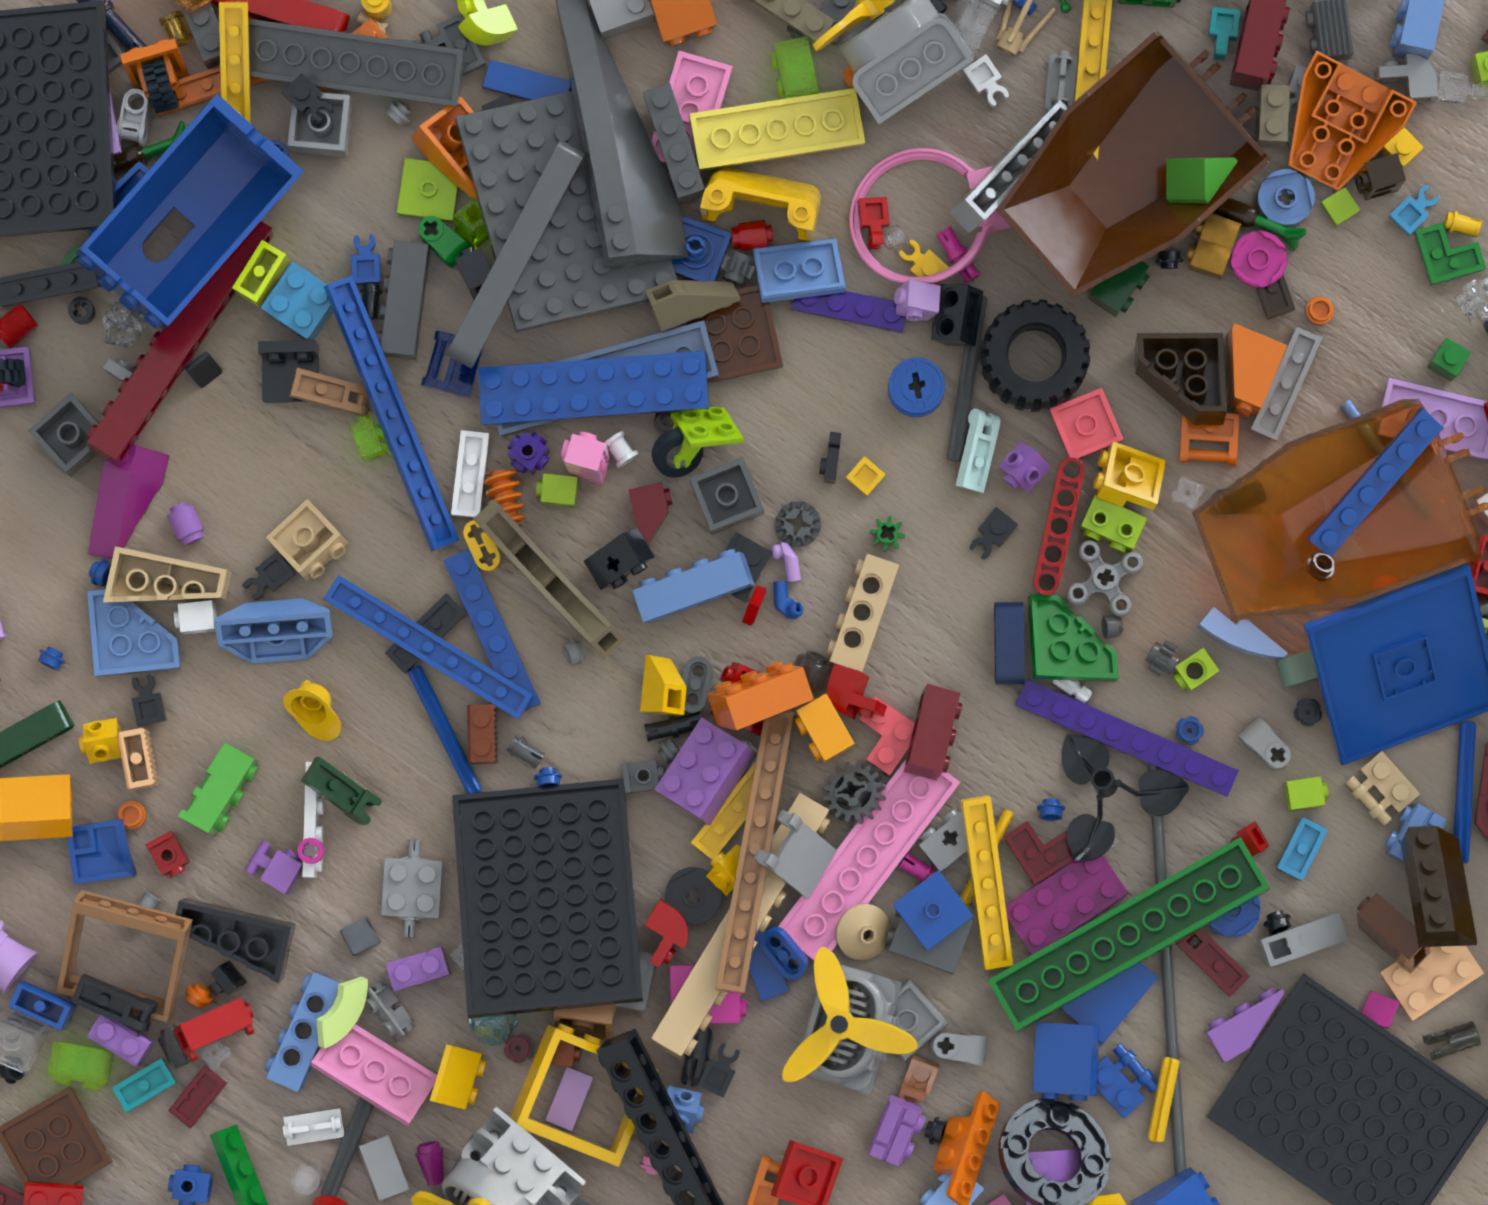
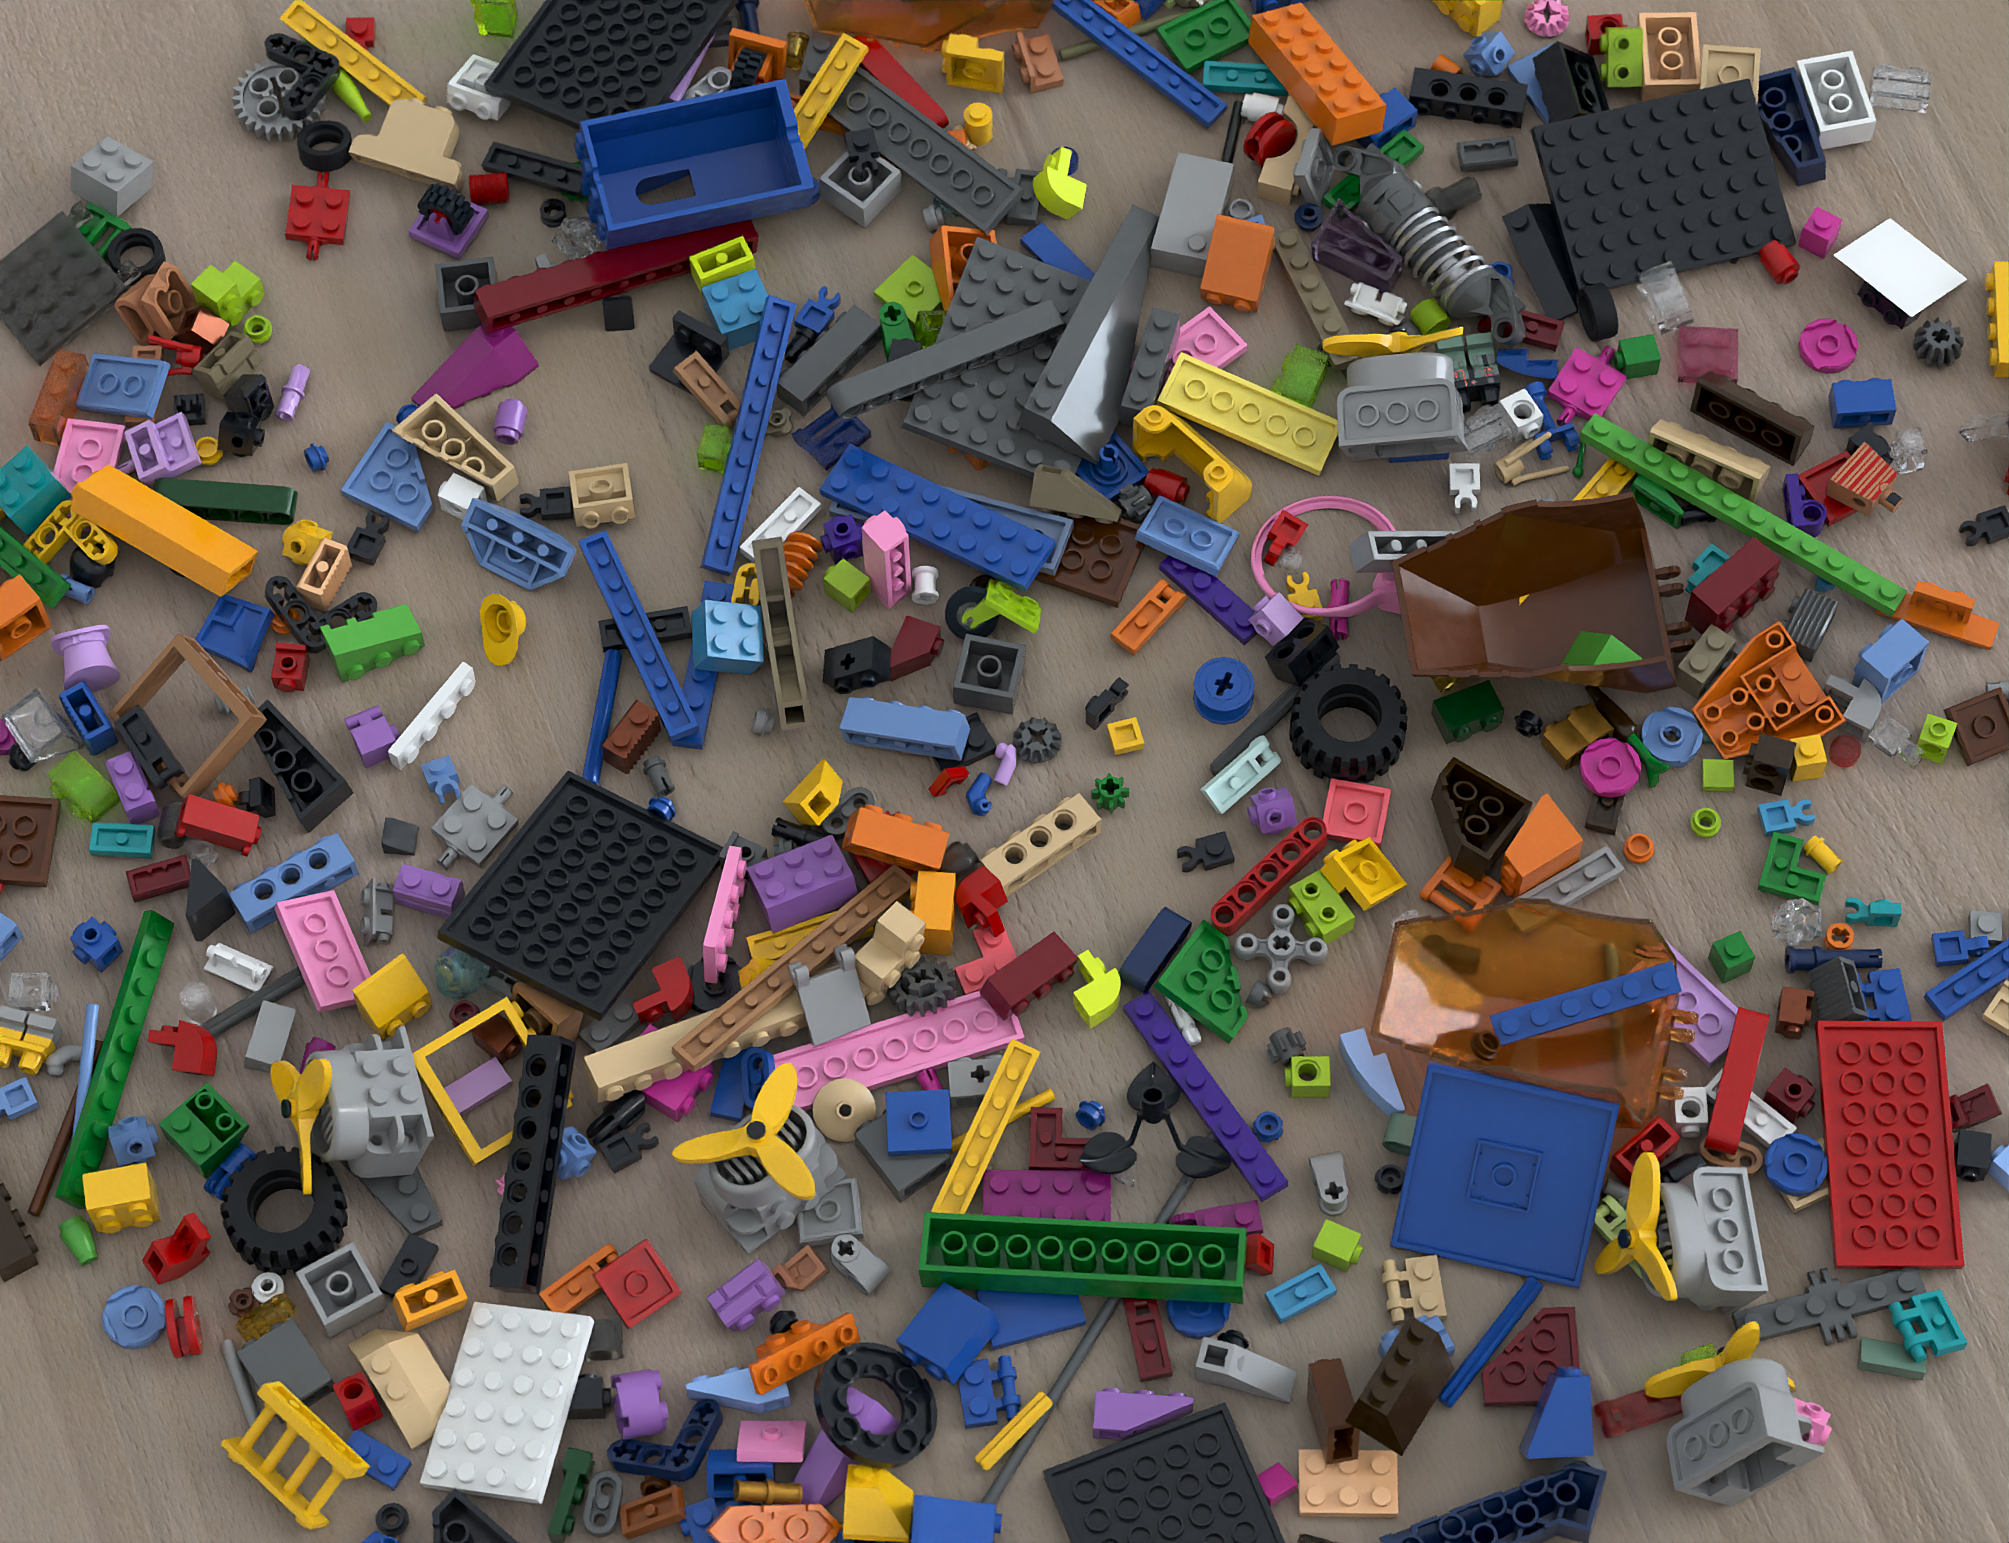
camera: 30 degrees right, 20 degrees down
(167, 801) = (276, 602): none -> black beam
(254, 1096) = (207, 902): none -> black slope
(314, 842) = (405, 724): dark pink bush -> none
(340, 790) = (474, 702): dark green plate -> none
(343, 1013) = (337, 882): yellowish green tile -> none
(357, 866) = (441, 777): none -> medium blue plate
(408, 381) = (782, 427): none -> dark tan plate
(501, 603) = (727, 637): none -> dark azure brick
(671, 848) = (724, 913): none -> bright pink plate
(813, 361) = (1147, 617): none -> orange plate
(816, 789) = (891, 949): none -> tan brick
(995, 708) = (1102, 993): none -> neon yellow brick
(1205, 831) = (1234, 1215): none -> magenta hinge
(1360, 247) = (1708, 815): none -> lime plate
(1424, 121) = (1845, 751): none -> clear red tile

